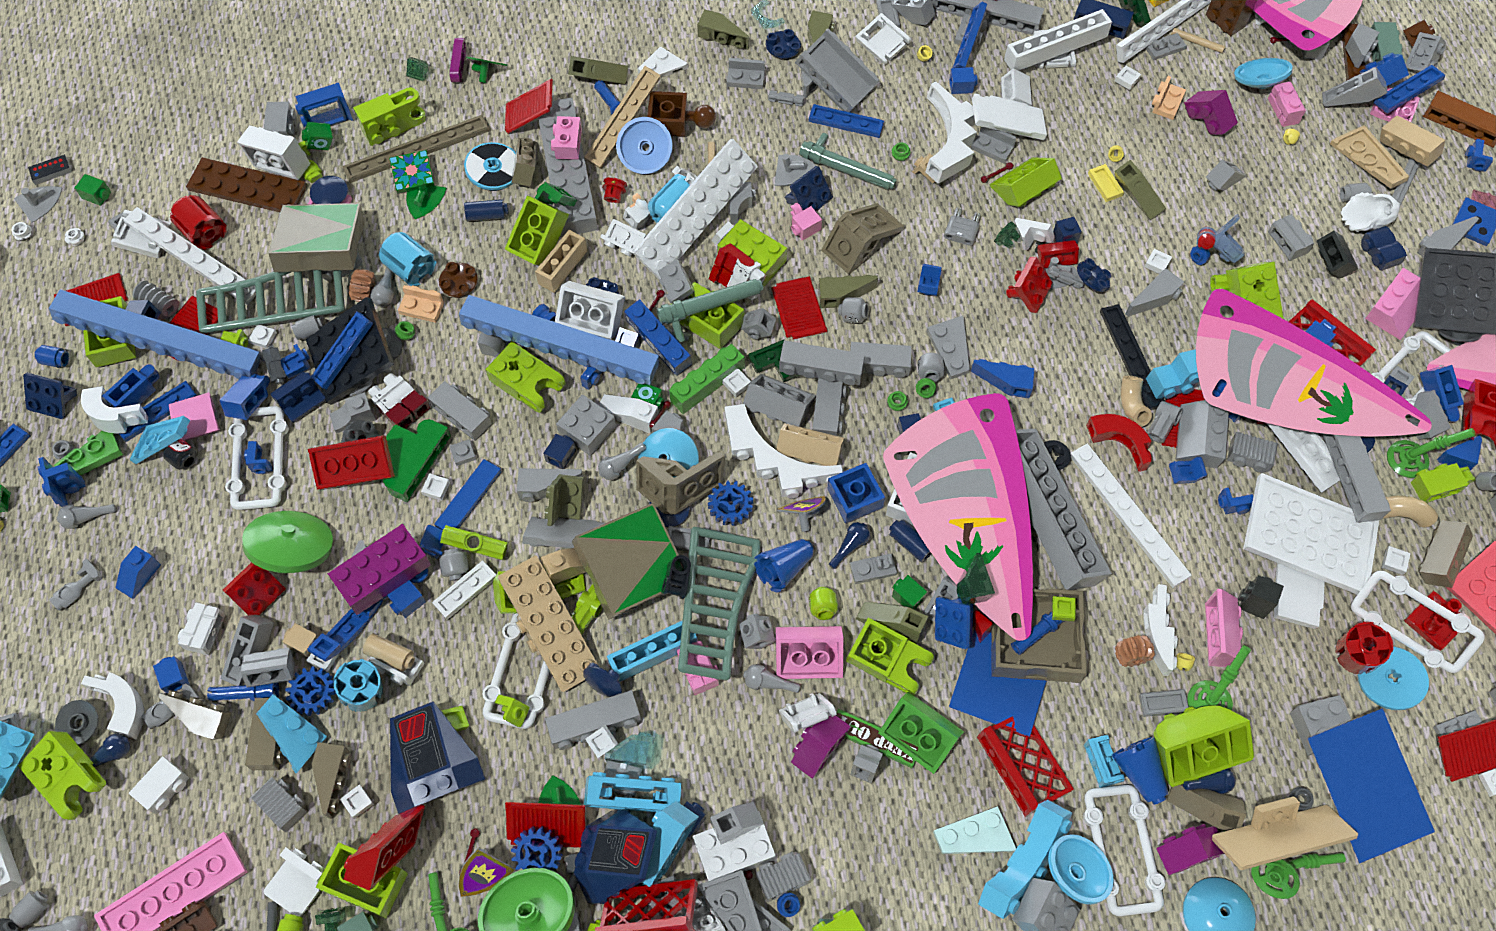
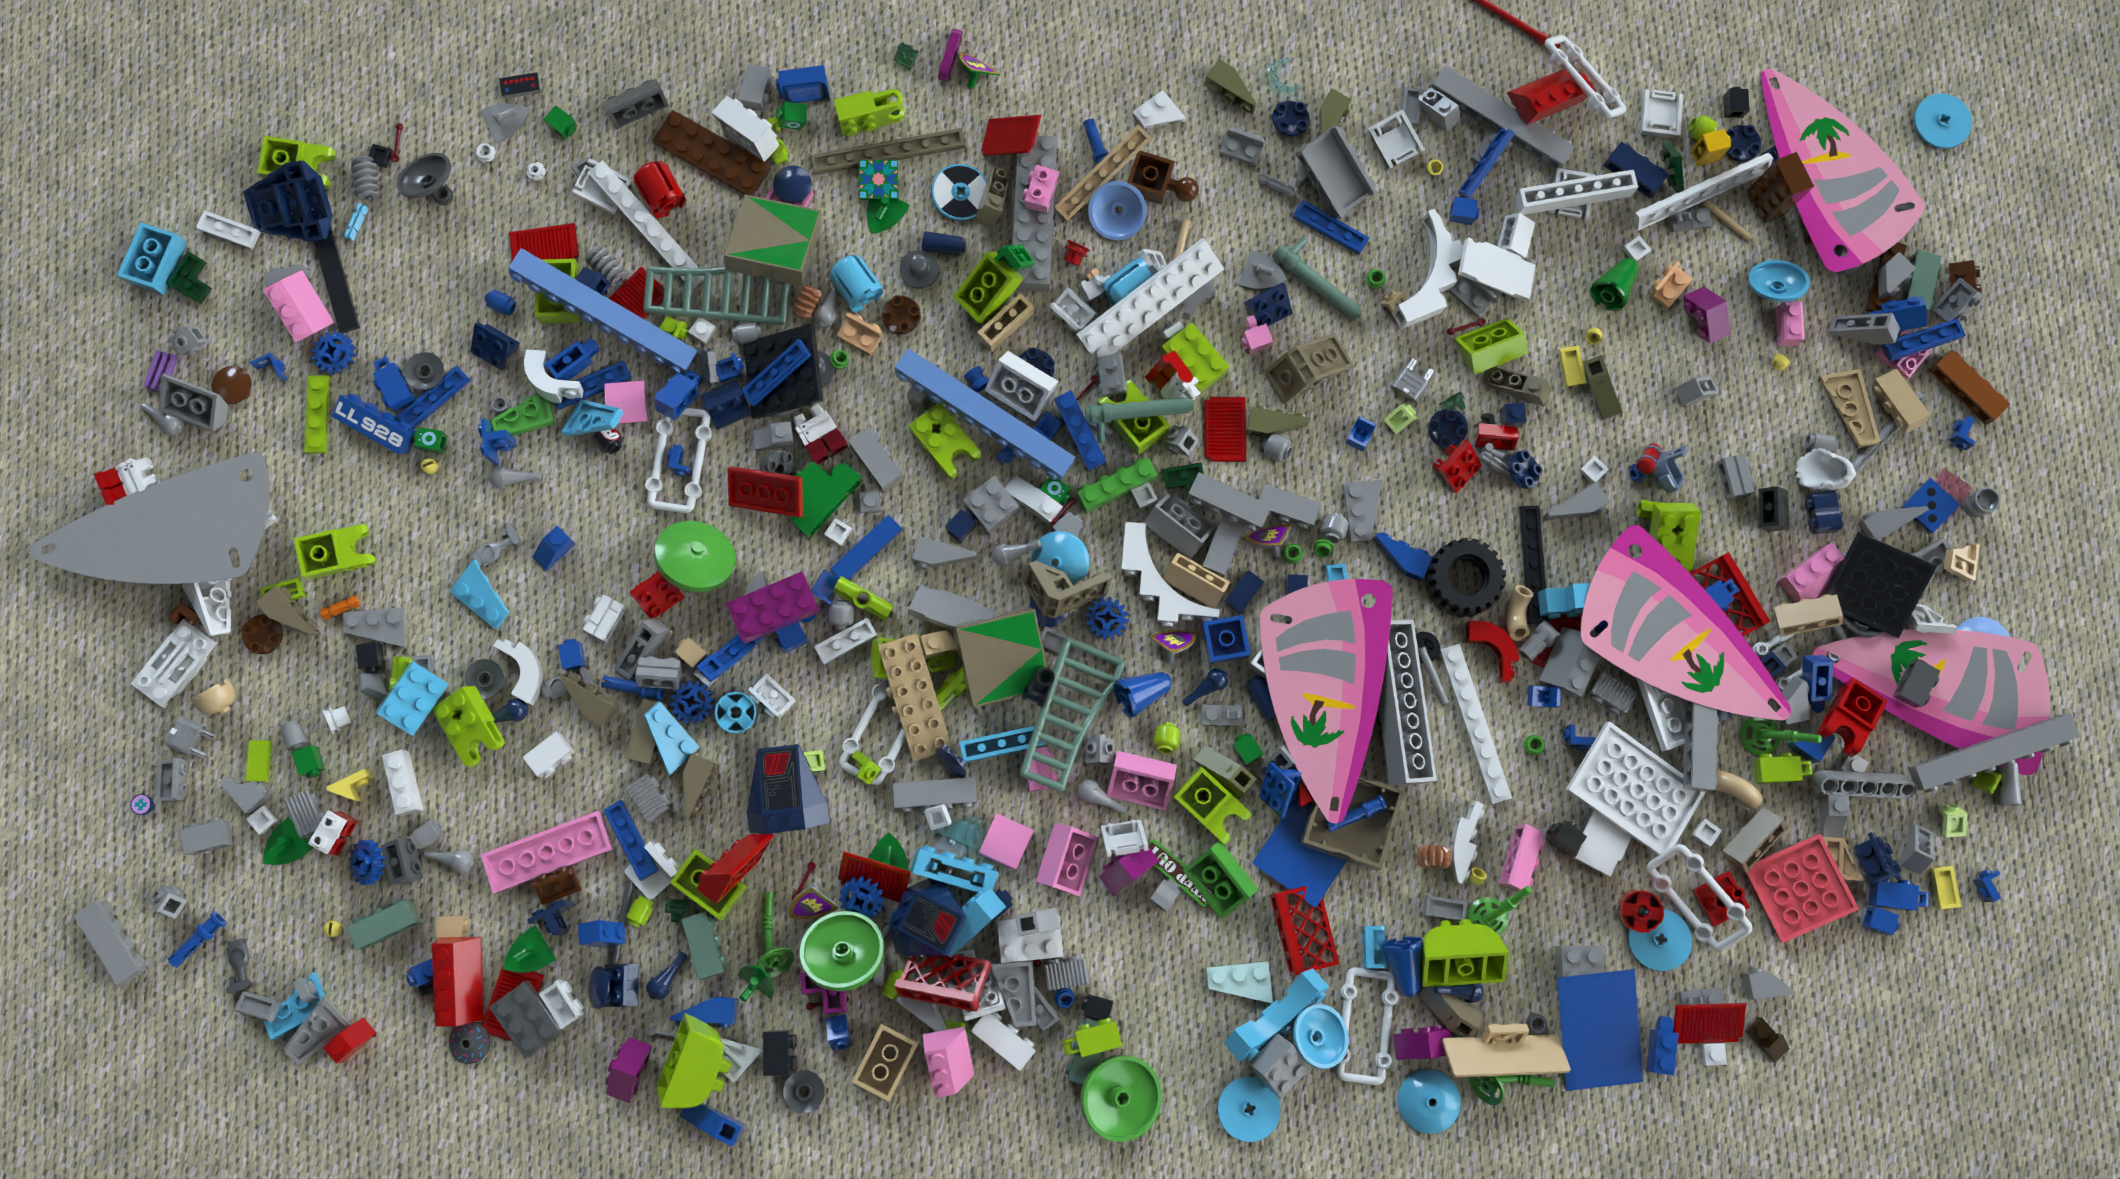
camera: 10 degrees right, 15 degrees up
(62, 639) = (477, 594): none -> medium azure wing
(165, 158) = (635, 103): none -> dark grey slope
(266, 856) = (631, 840): none -> blue tile
(356, 801) = (715, 812): white plate -> none
(388, 652) = (767, 687): tan brick -> none
(467, 237) = (919, 269): none -> dark grey plate
(564, 498) = (955, 577): olive bracket -> none
(598, 70) = (1090, 105): olive slope -> none
(681, 751) = (1006, 841): none -> bright pink slope
(752, 752) = (1067, 859): none -> bright pink slope
(826, 904) = (1097, 1007): none -> black brick
(860, 446) = (1244, 591): none -> dark blue tile
(871, 391) = (1269, 537): none -> shield
(962, 259) = (1400, 418): none -> yellowish green bracket
(975, 582) = (1306, 760): clear green slope -> none
(1009, 256) = (1448, 427): none -> dark blue dish
(1034, 230) = (1477, 406): white slope -> none
(1063, 608) = (1381, 803): lime tile -> none
(1064, 206) = (1520, 385): none -> dark tan slope
(1072, 478) = (1433, 675): none -> light grey bar
(1083, 360) = (1483, 559): none -> black tyre
(1119, 108) = (1615, 285): none -> green cone
(1196, 514) = (1538, 740): none -> bright green plate
(1409, 335) = (1808, 615): none -> tan brick
(1442, 787) = (1662, 1047): none -> blue brick

